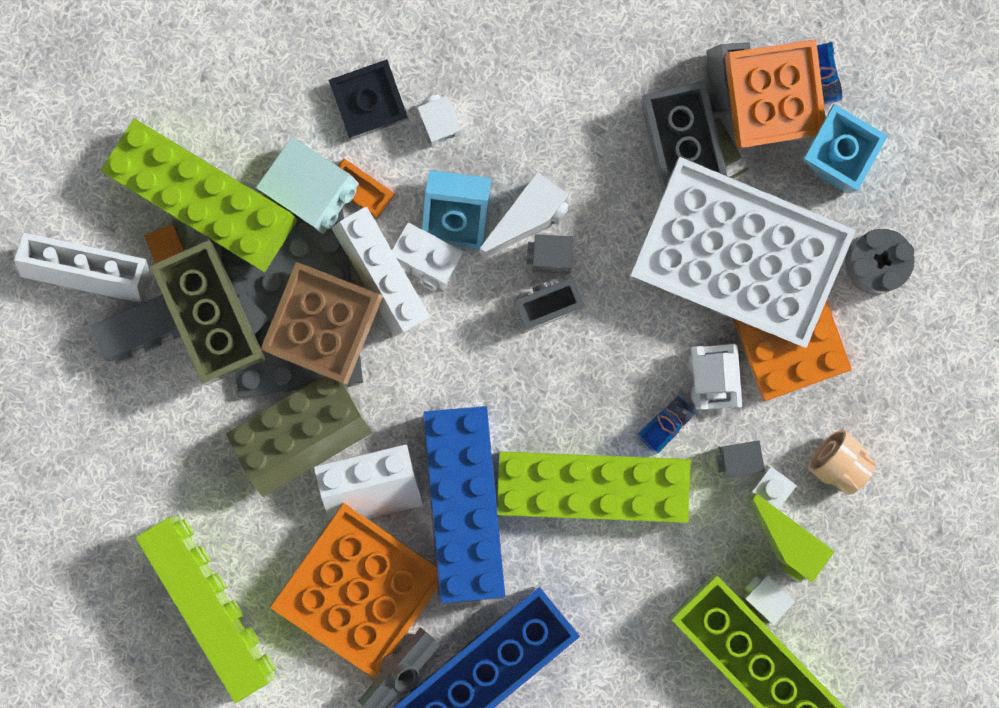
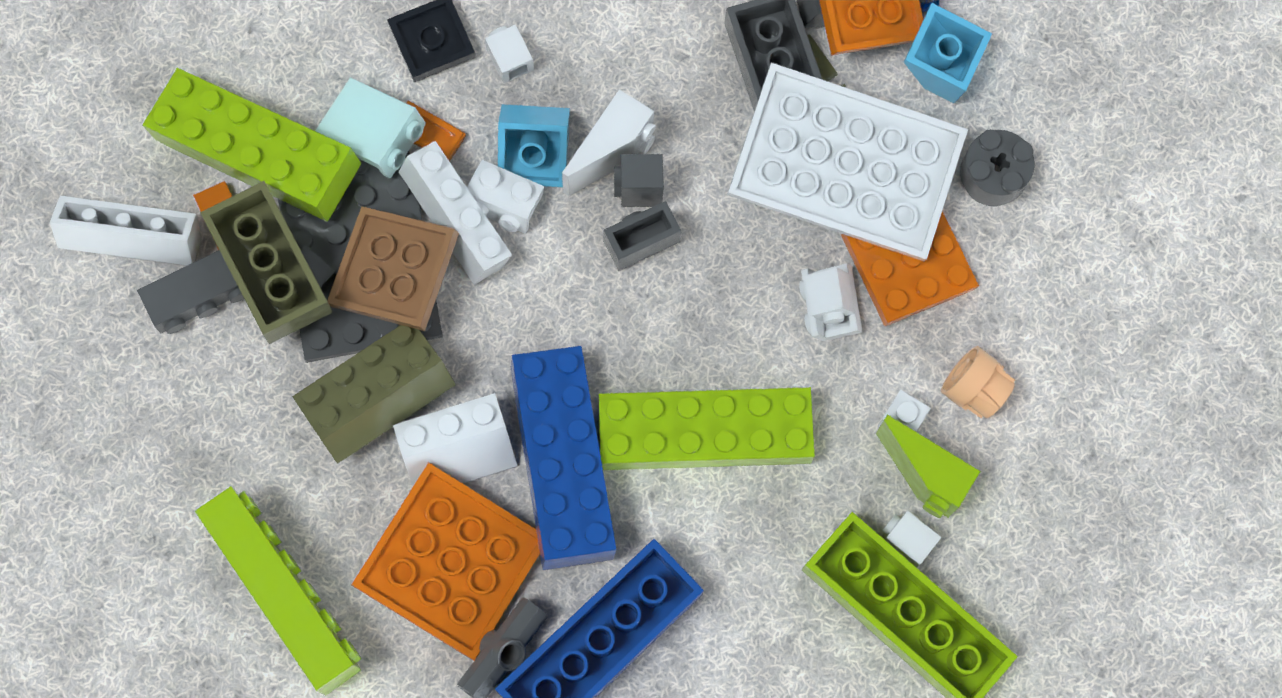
camera: 10 degrees left, 10 degrees down
(666, 425) = (780, 358): clear blue leg -> none
(740, 459) = (866, 388): dark grey brick -> none

